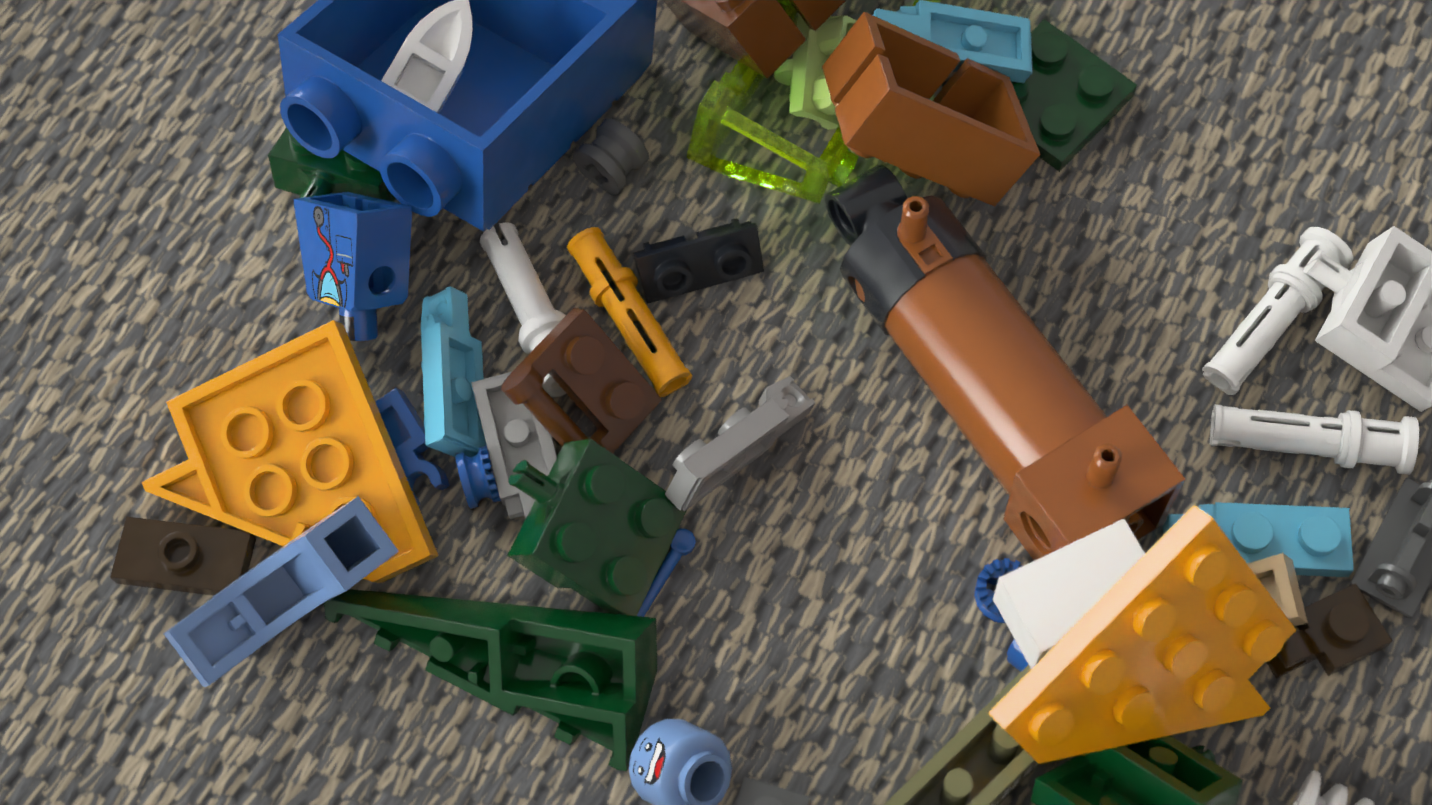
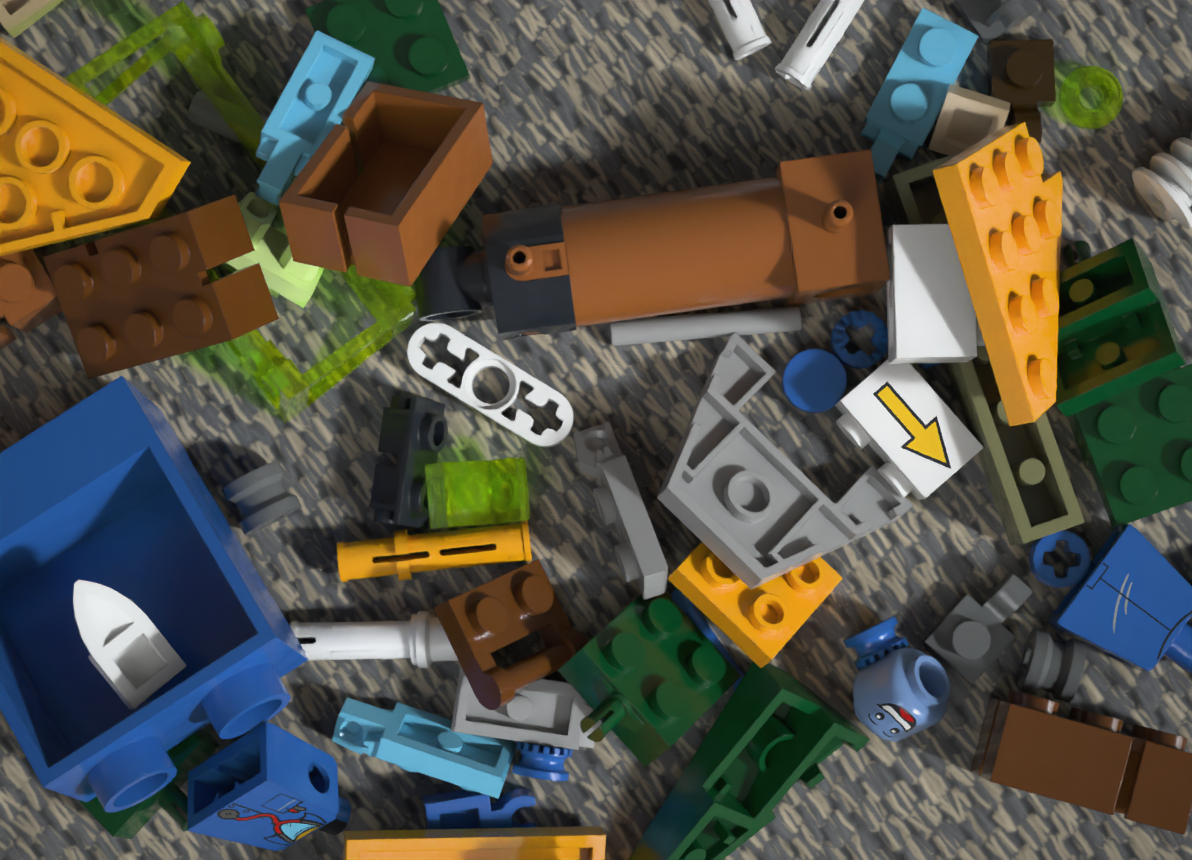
camera: 70 degrees left, 20 degrees up
(695, 316) = (477, 492): none -> clear neon green bracket
(724, 723) = (875, 641): none -> blue bush
(730, 584) = (758, 618): none -> light orange plate
(783, 277) = (458, 347): none -> white beam
(800, 543) = (748, 495): none -> light grey wing
(943, 663) = (907, 429): none -> white brick
(944, 567) = (814, 381): none -> blue tile
(946, 452) = (705, 325): none -> light grey bar
(1370, 689) = (1104, 83): none -> clear neon green plate

